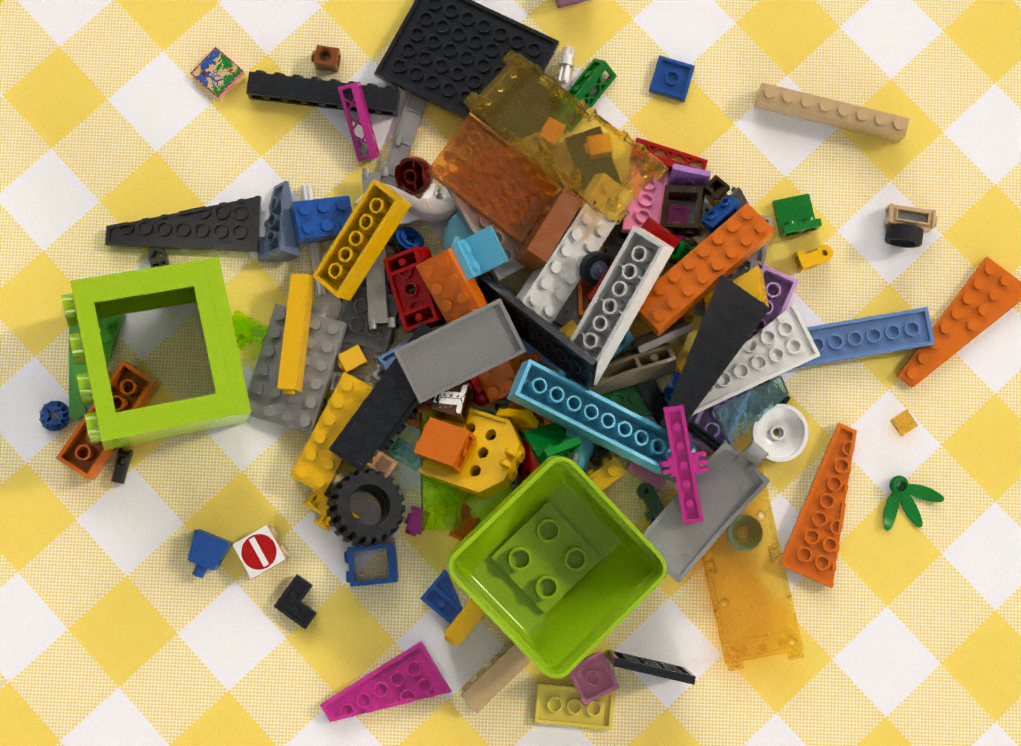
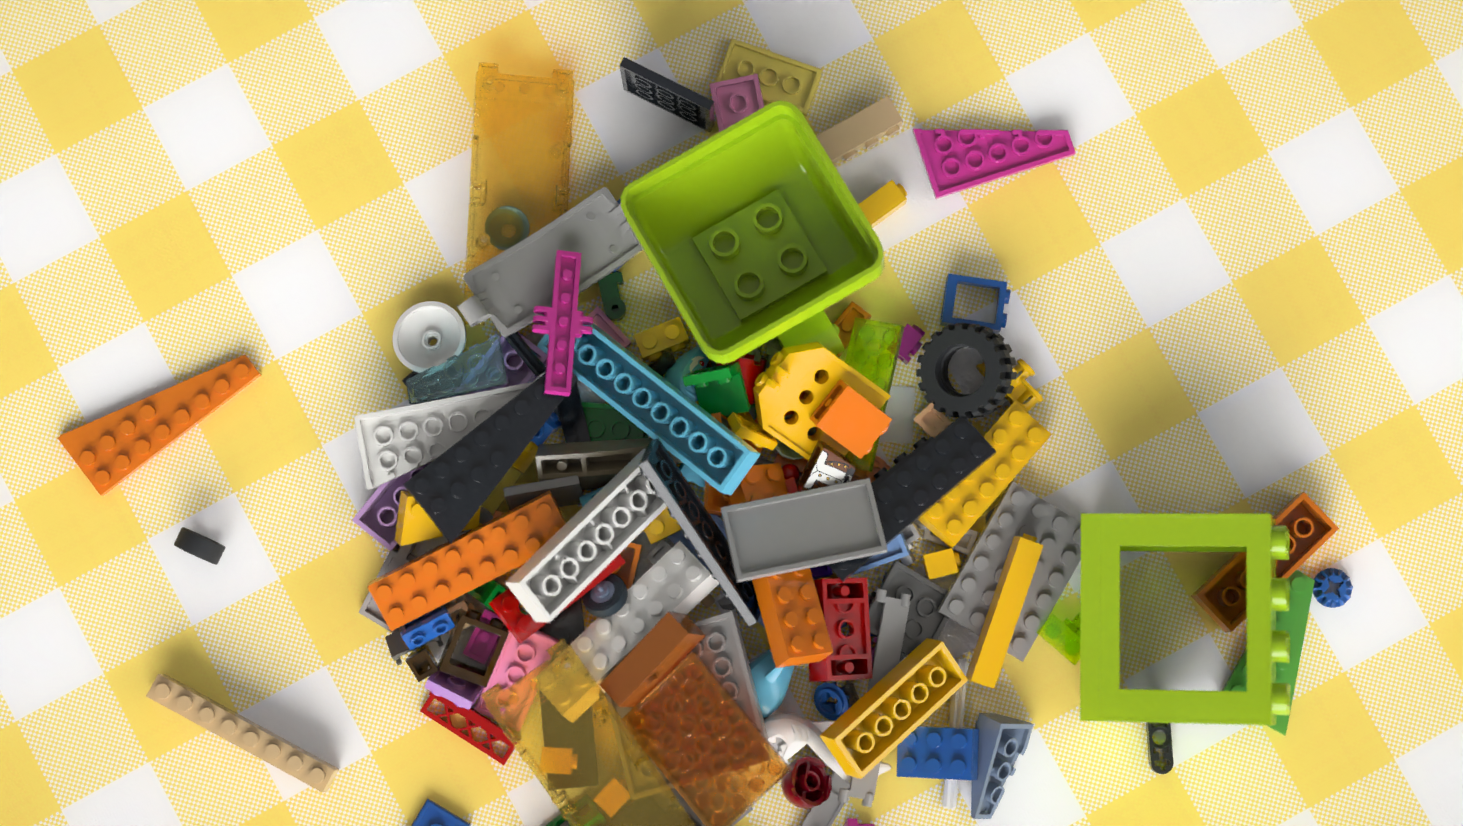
camera: 165 degrees left, 0 degrees up
(120, 470) = (1262, 497): black bar -> none
(207, 551) = (1174, 370): blue torso -> none
(215, 227) = (1078, 781): black wing -> none
(261, 551) = (1107, 353): piece -> none
(291, 602) = (1083, 281): black plate -> none
(404, 452) = (902, 428): clear light blue brick -> none
(443, 597) = (897, 241): blue wing -> none
(479, 253) = (749, 648): medium azure bracket -> none
(795, 215) = (328, 609): green bracket -> none
(812, 259) = (313, 548): yellow leg -> none
(817, 531) = (416, 210): orange wing -> none
(871, 336) = (279, 430): medium blue plate -> none
(904, 423) = (270, 313): clear yellow tile -> none
(908, 505) = (294, 210): green plant -> none
(919, 217) = (182, 568): tan window -> none

